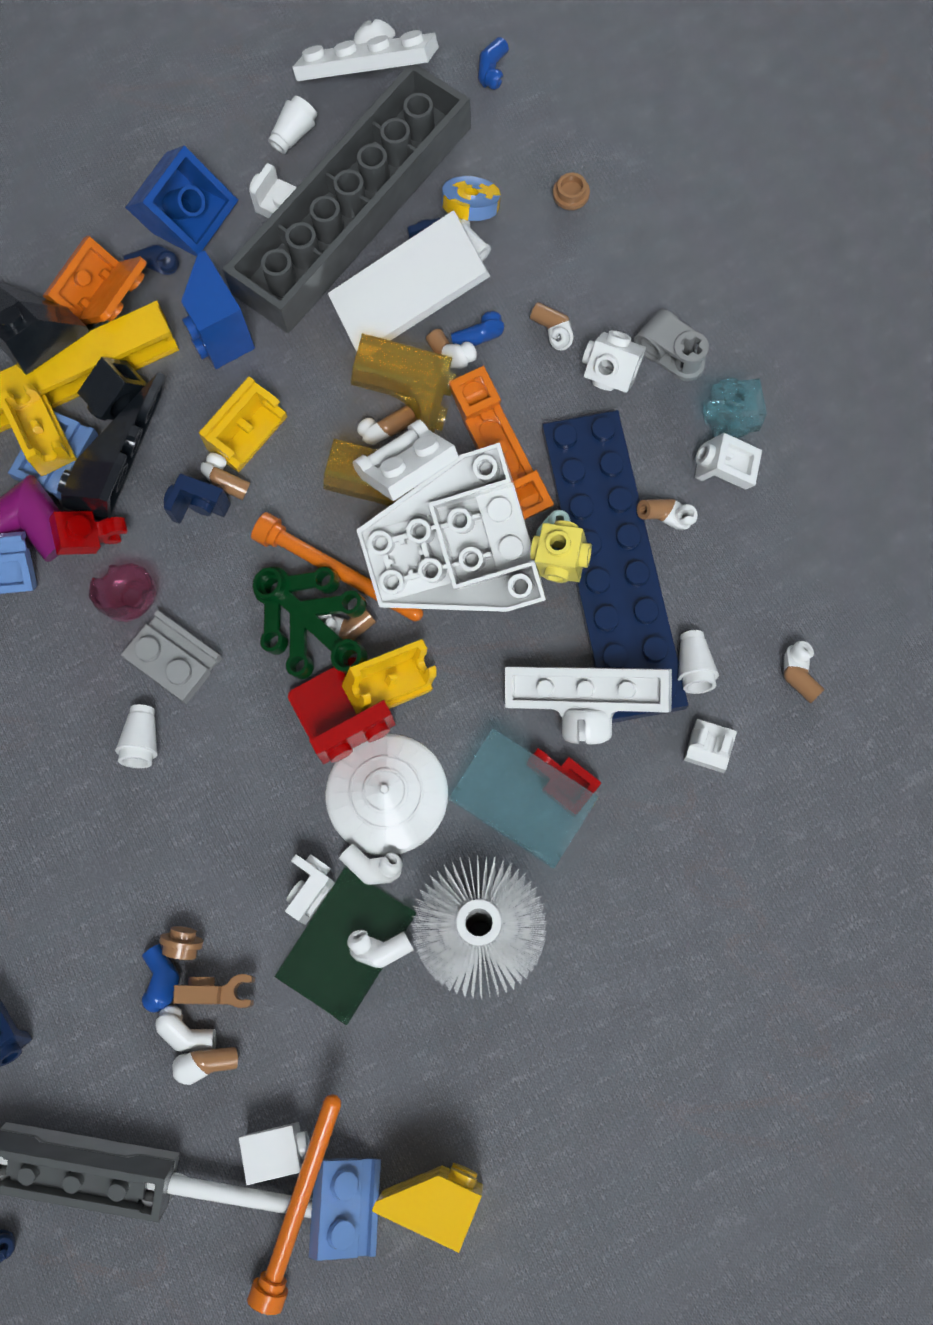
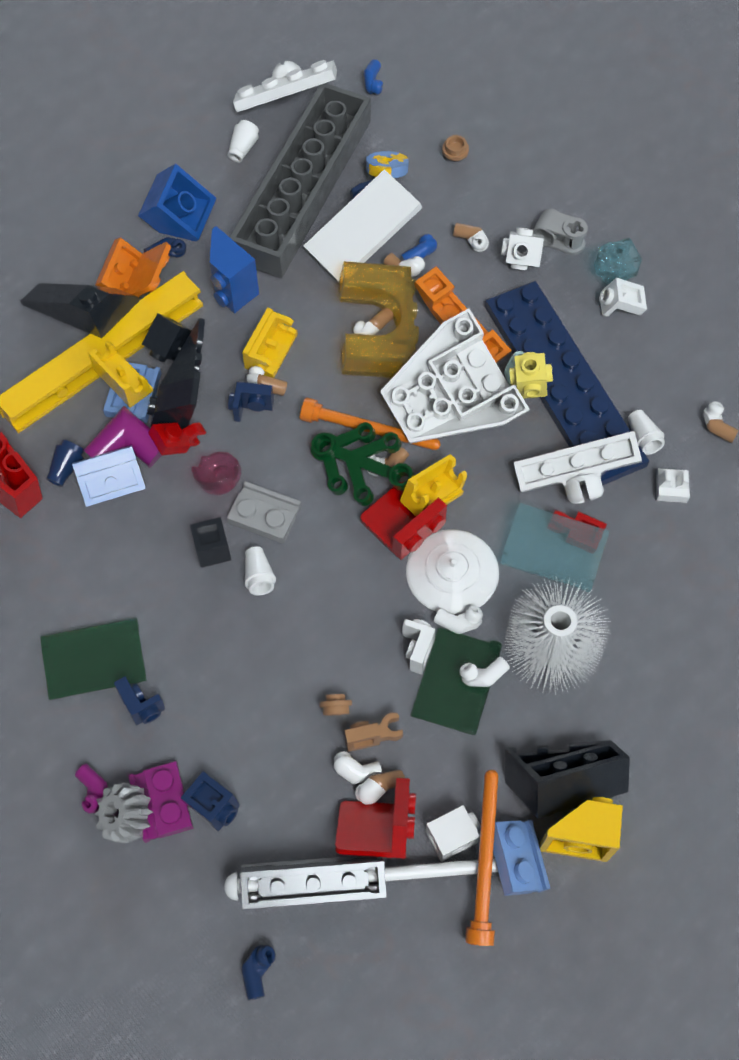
camera: 20 degrees left, 10 degrees down
(85, 687) = (210, 542): none -> black brick
(164, 977) = (329, 734): blue arm -> none
(178, 1122) = (377, 827): none -> red bracket
(268, 191) = (241, 189): white bracket -> none
(406, 461) = (404, 335): white plate -> none
(437, 1122) = (566, 777): none -> black wedge
(668, 511) = (593, 339): arm -> none

